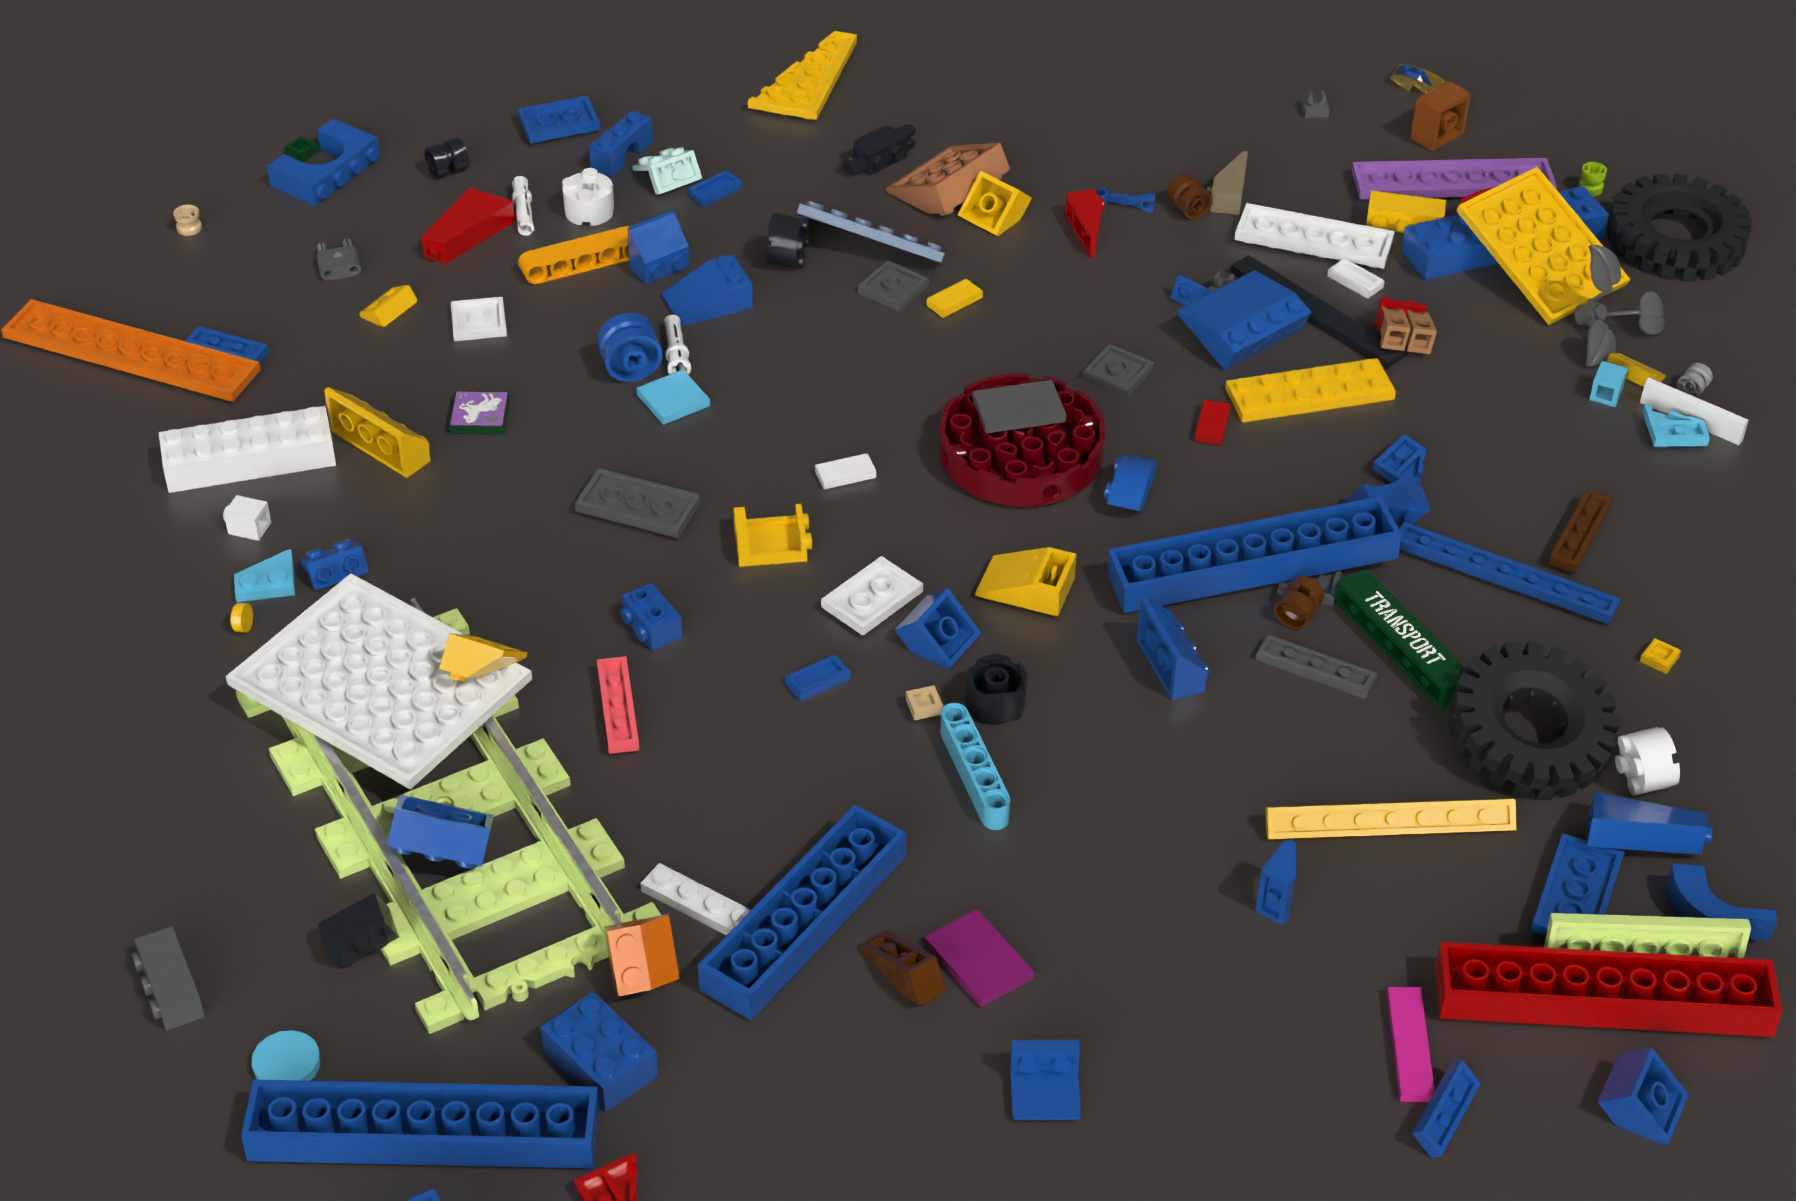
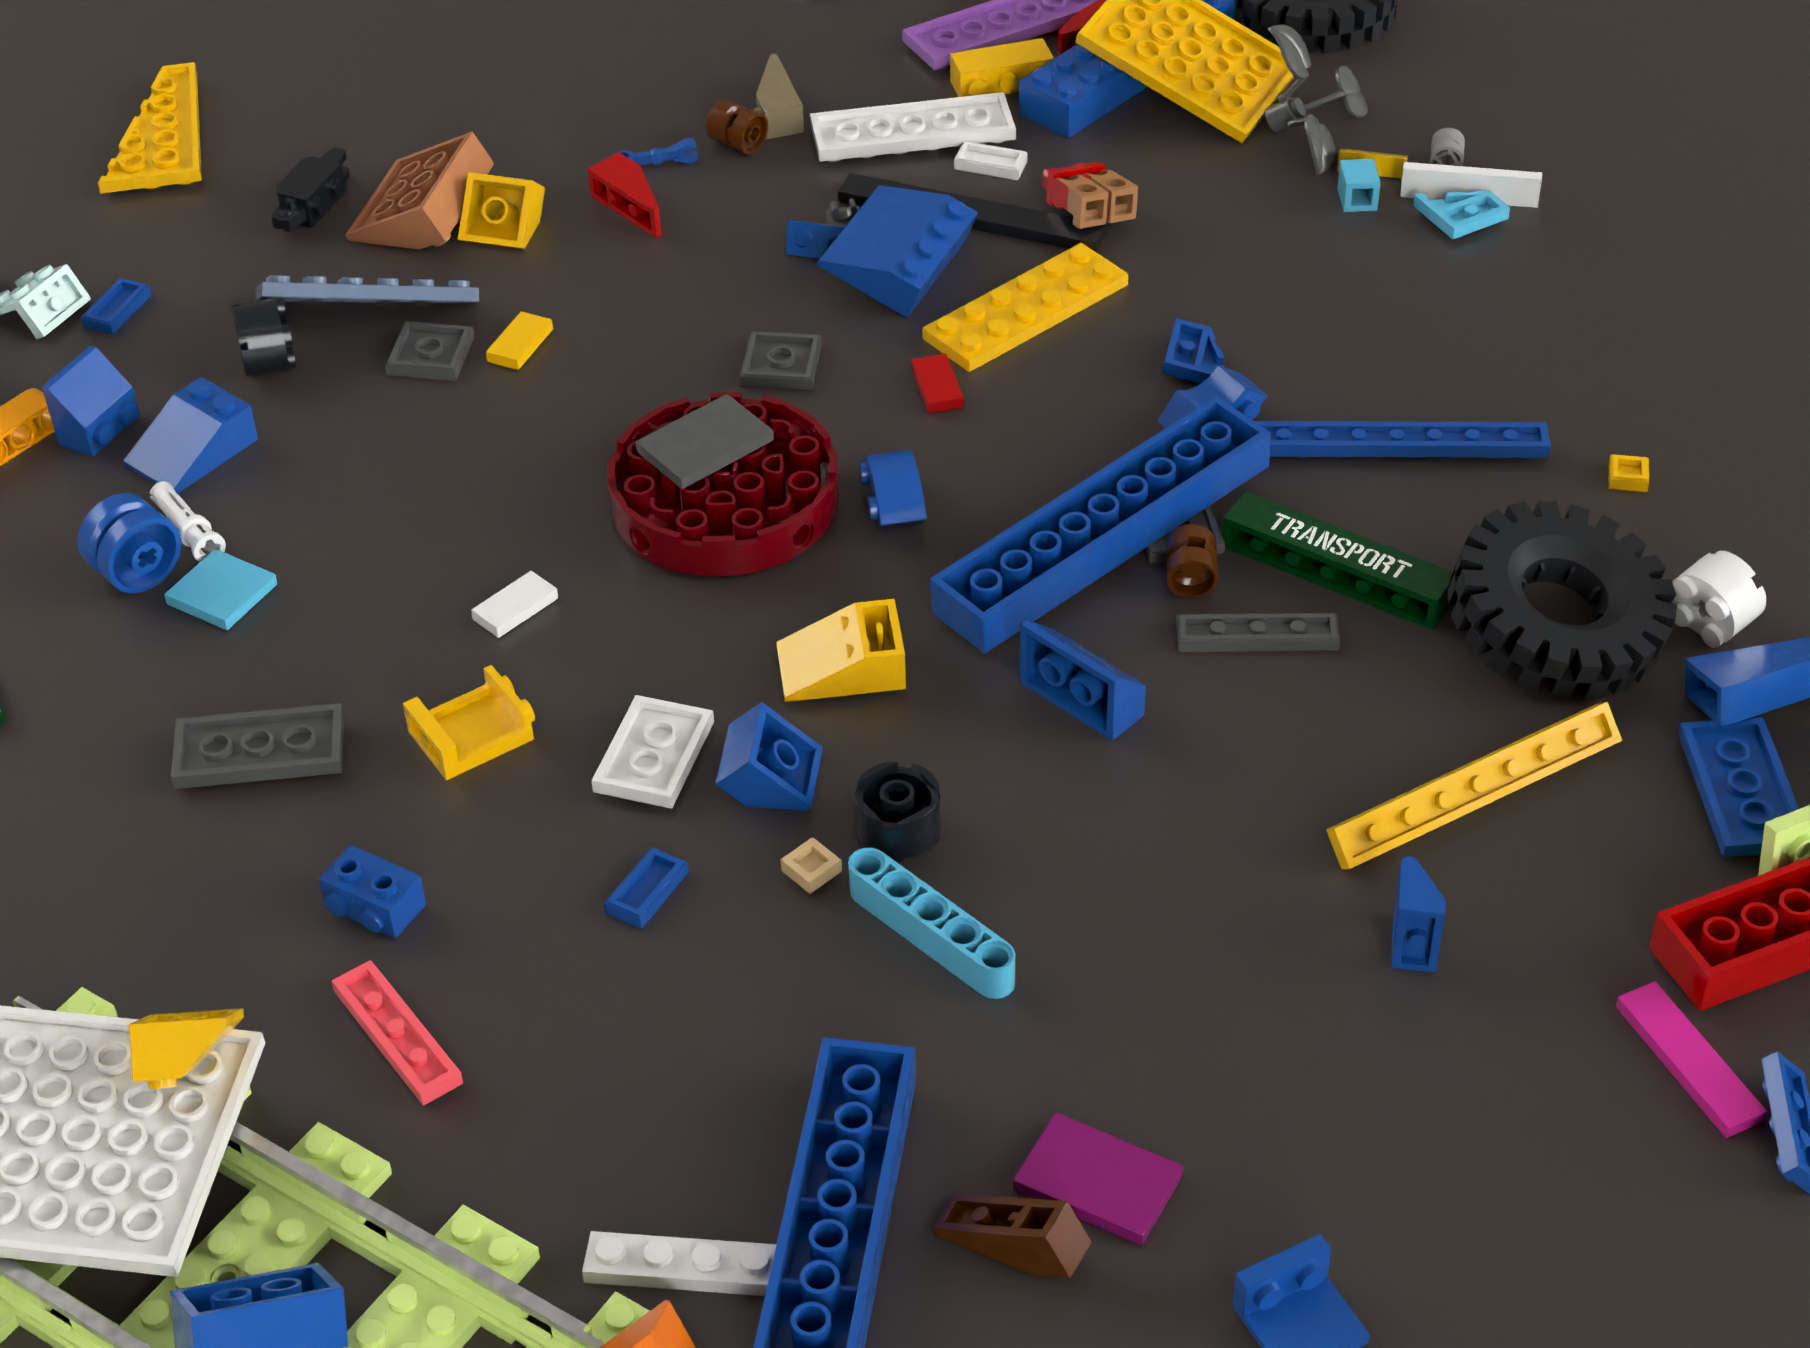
camera: 25 degrees left, 0 degrees up
(1580, 531) = (1445, 362): reddish brown plate -> none

